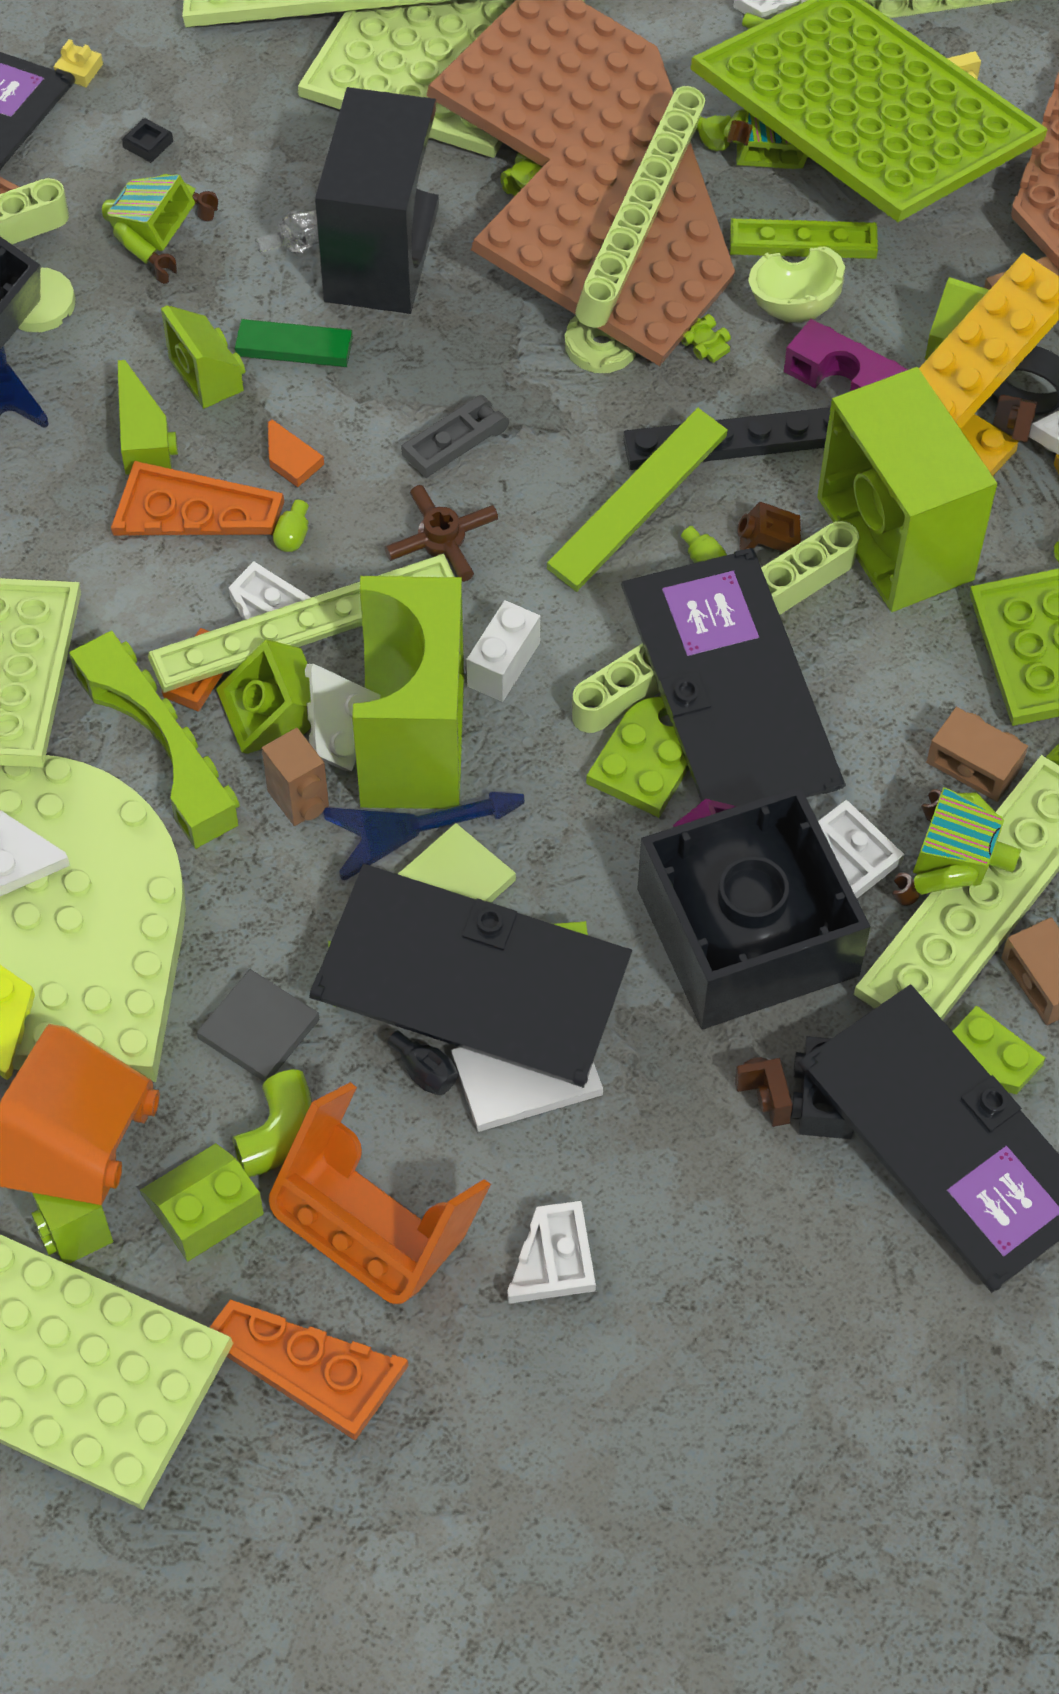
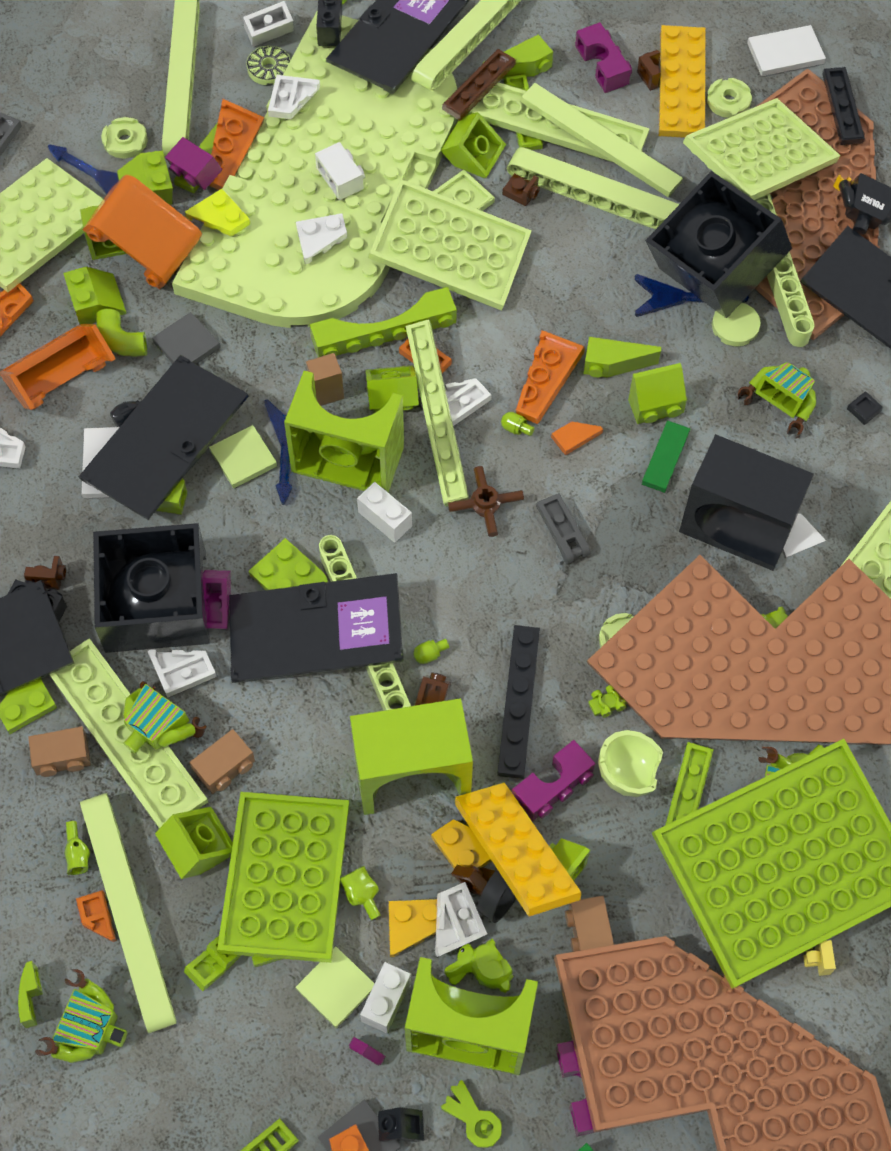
camera: 105 degrees right, 5 degrees up
(332, 713) = (360, 403): white wing -> none
(636, 499) = (479, 619): lime tile -> none
(639, 207) = (729, 673): yellowish green beam -> none

